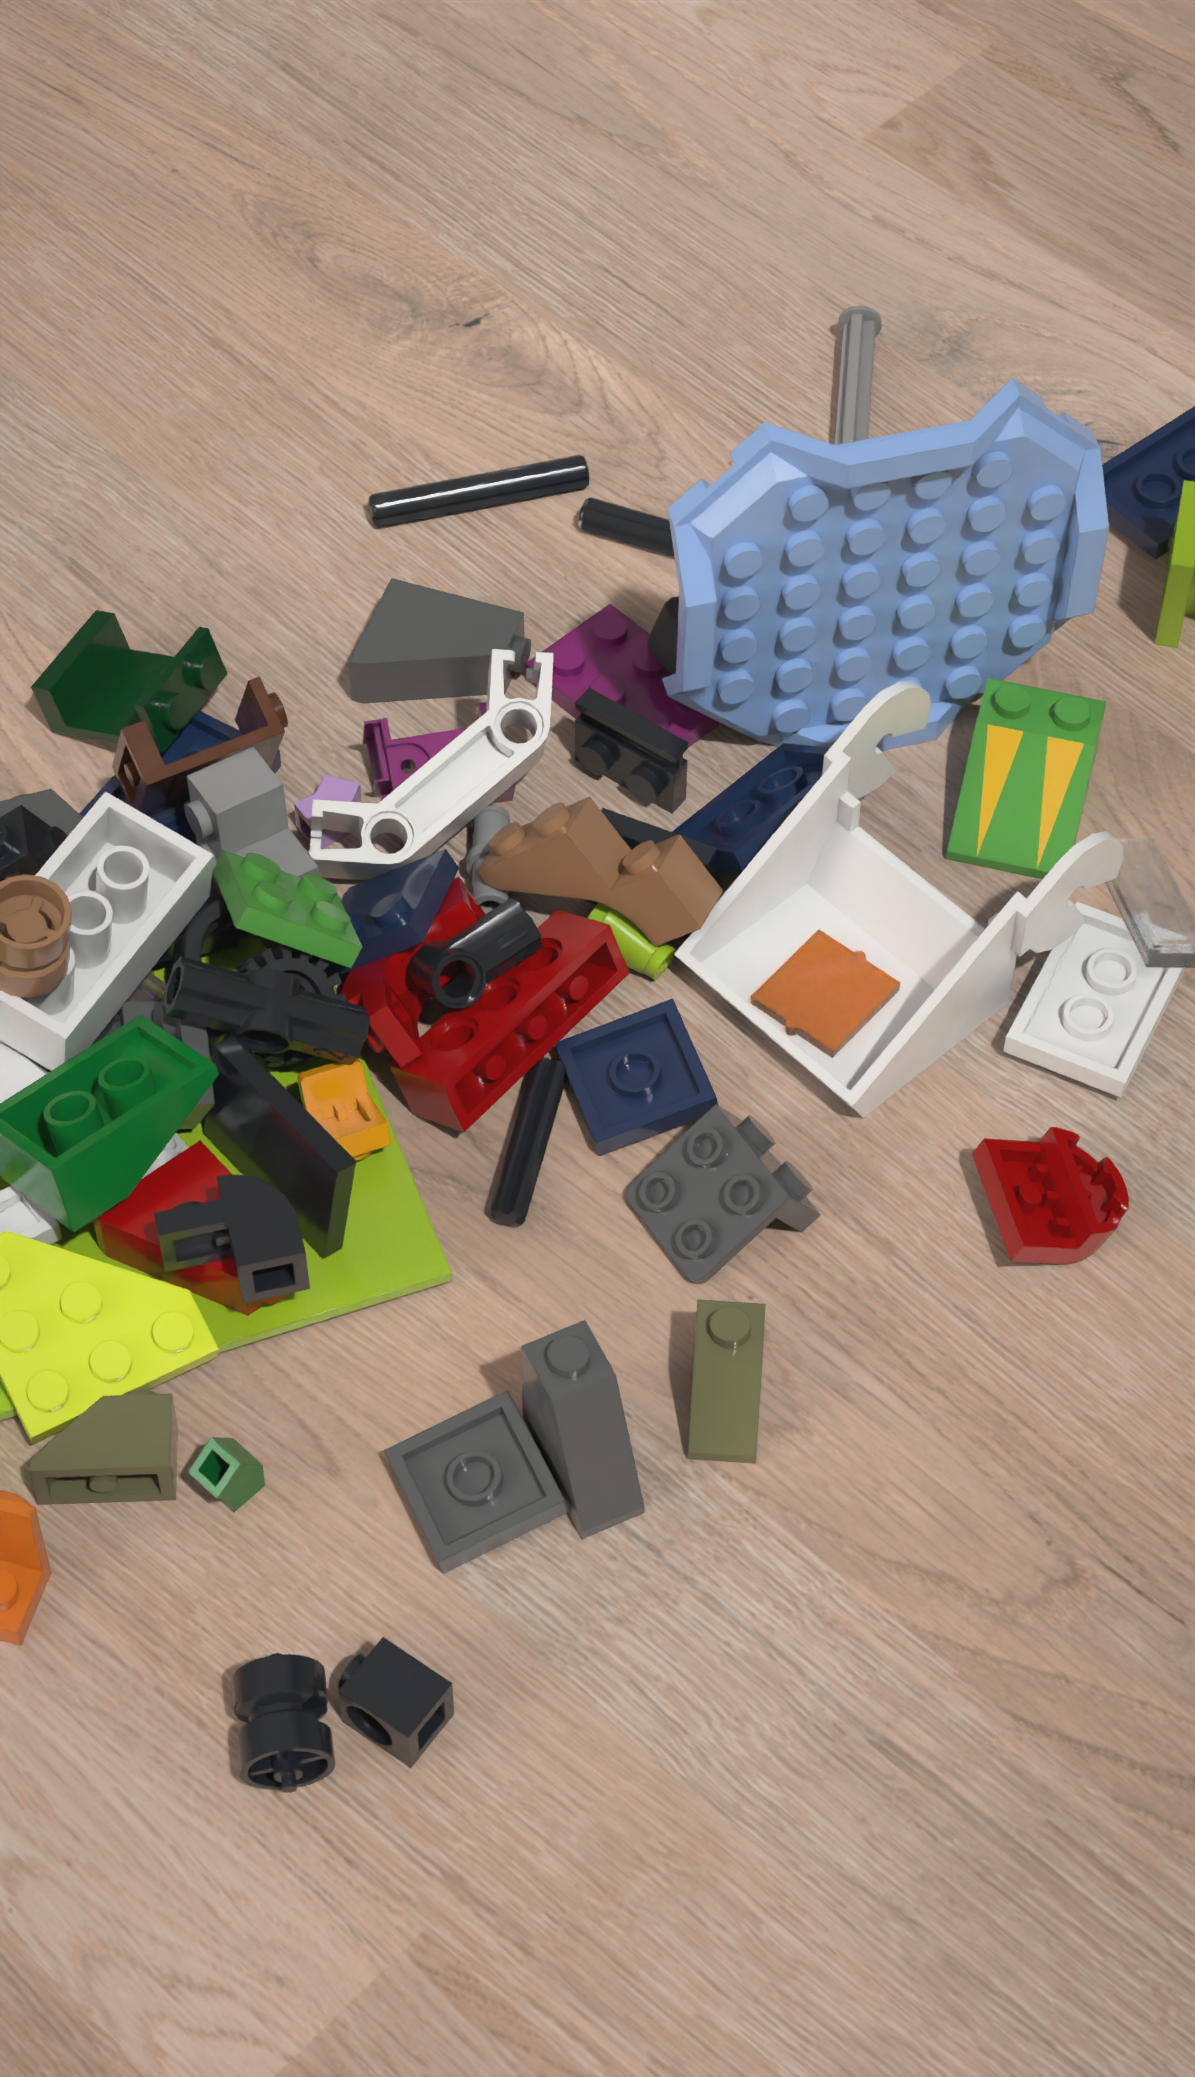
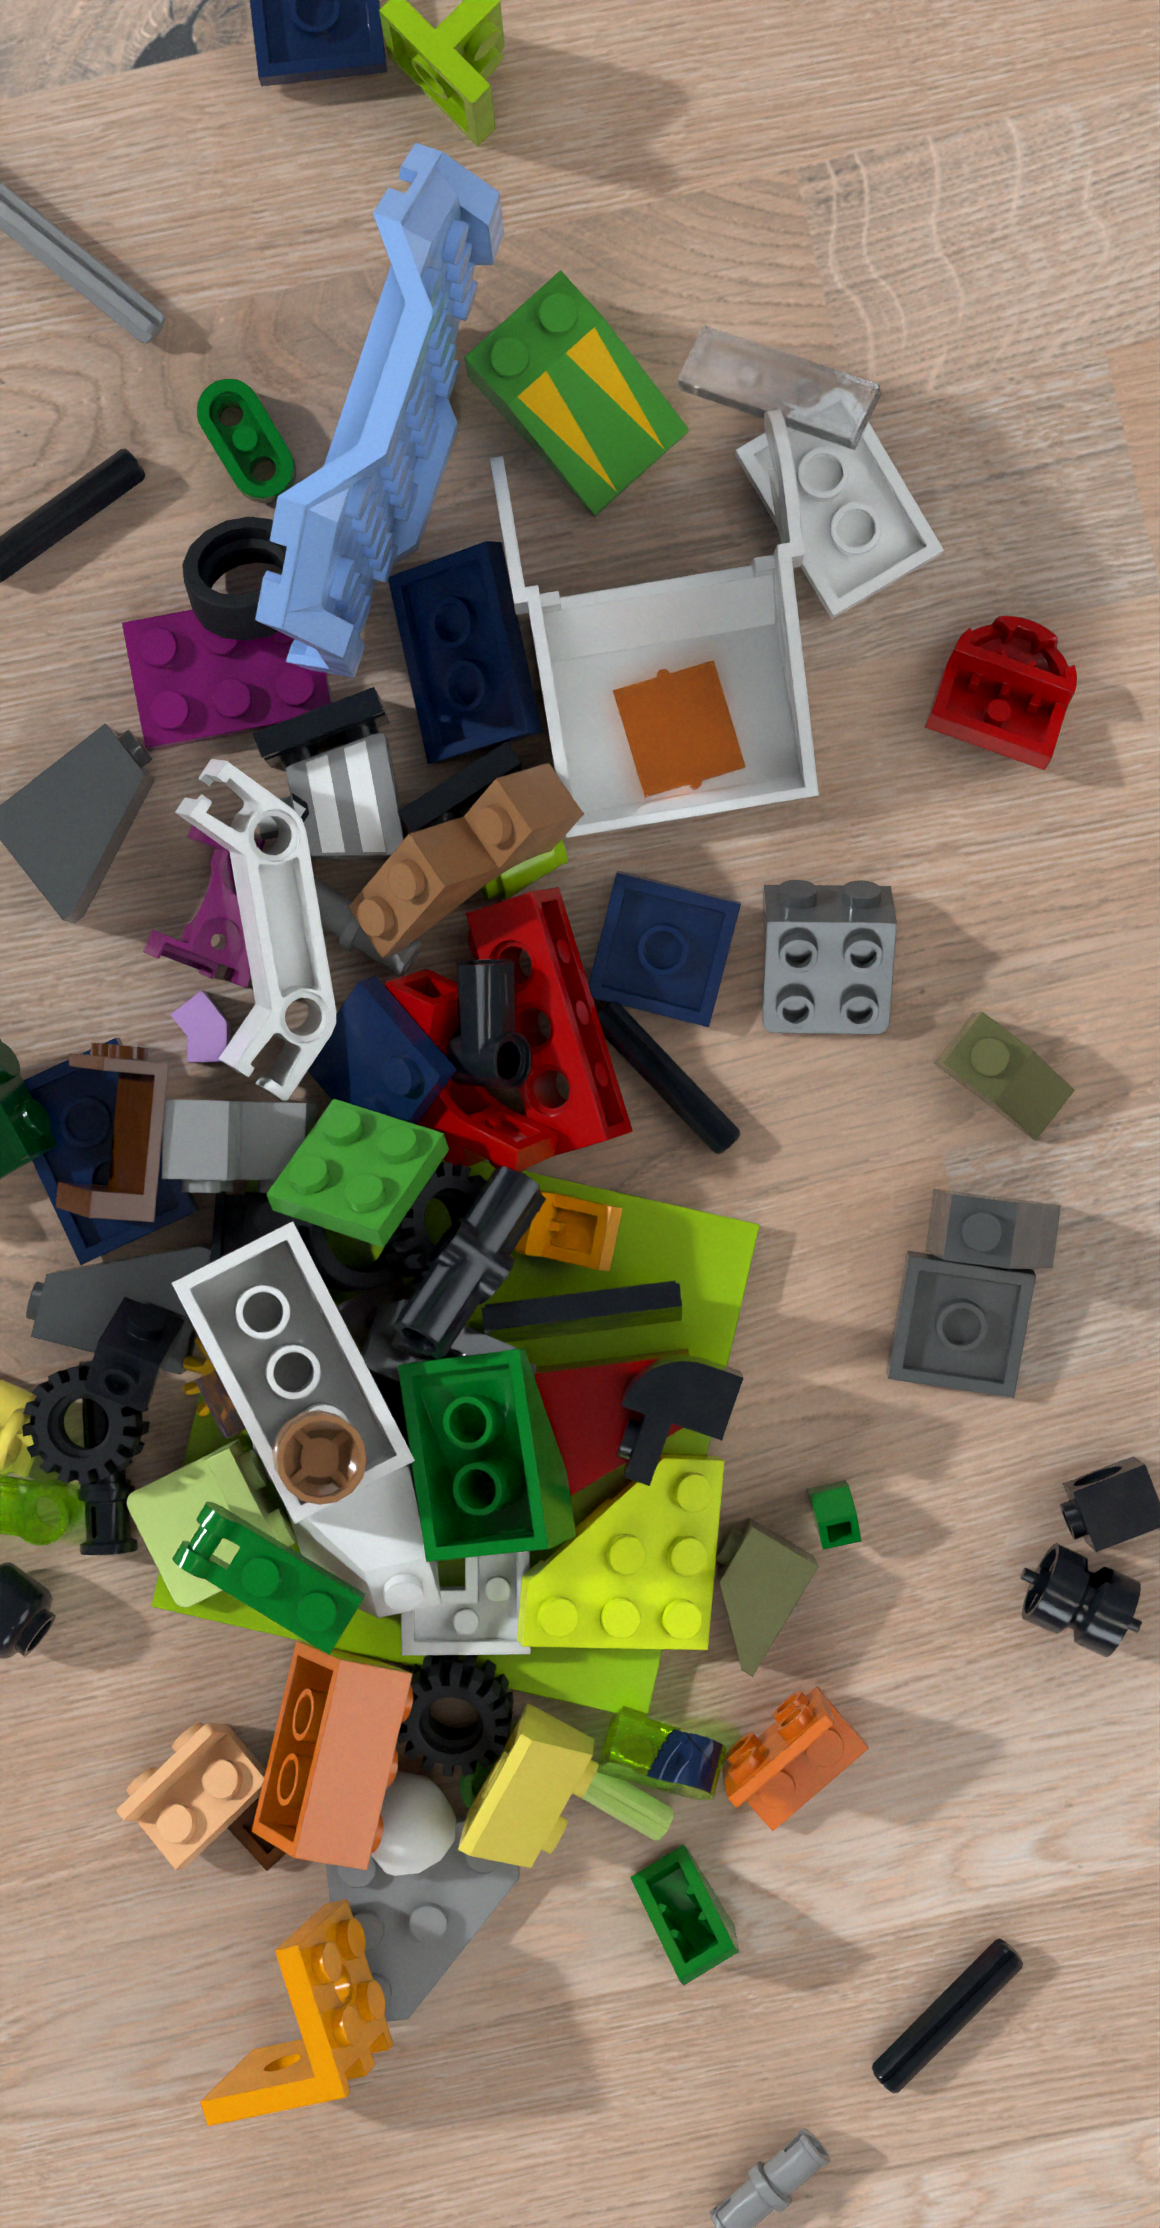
camera: 55 degrees left, 35 degrees up
(586, 771) = (346, 802): none -> torso

